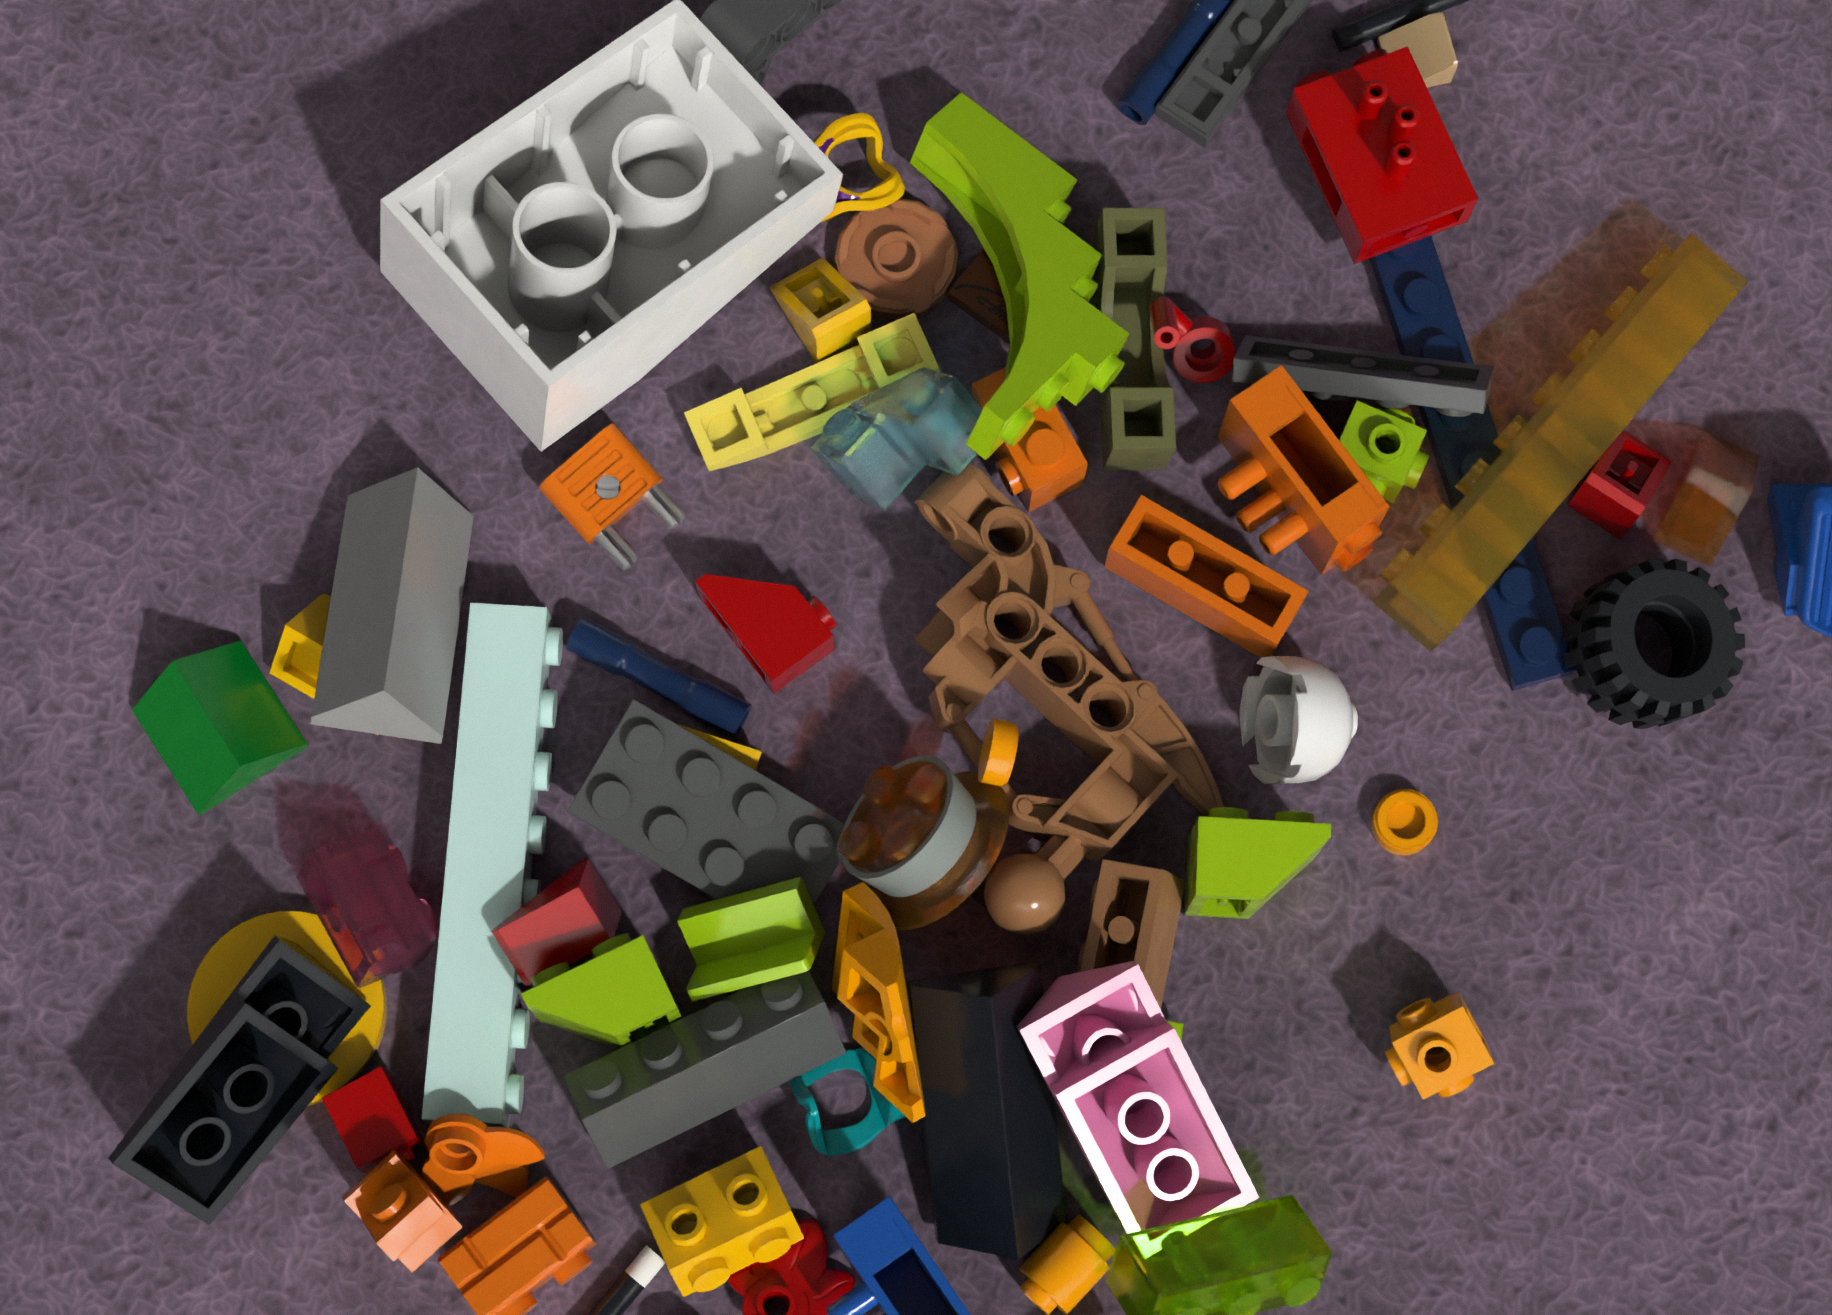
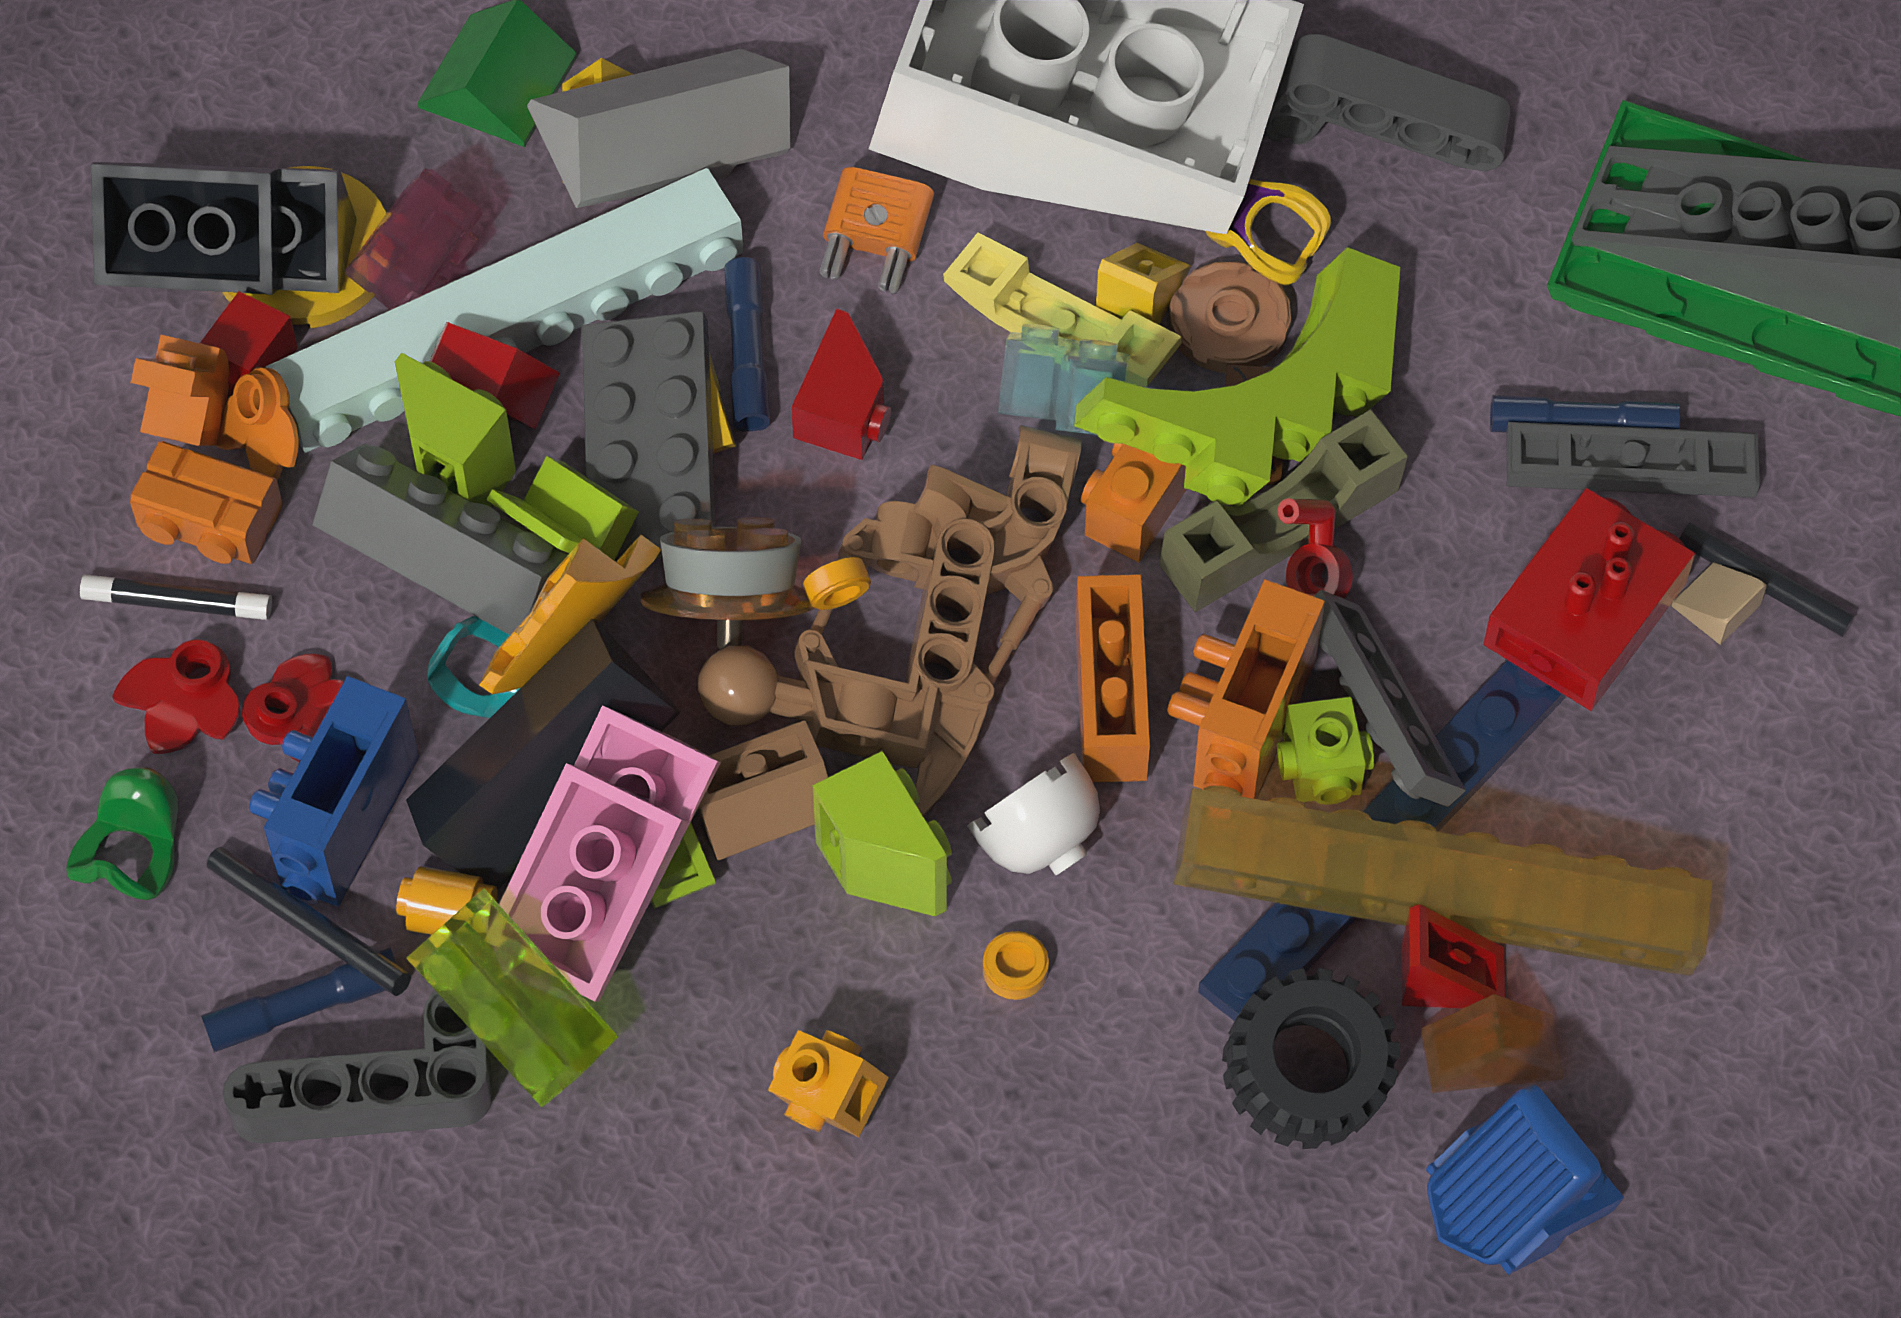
camera: 60 degrees right, 15 degrees down
(722, 1222) = (319, 625): yellow brick -> none

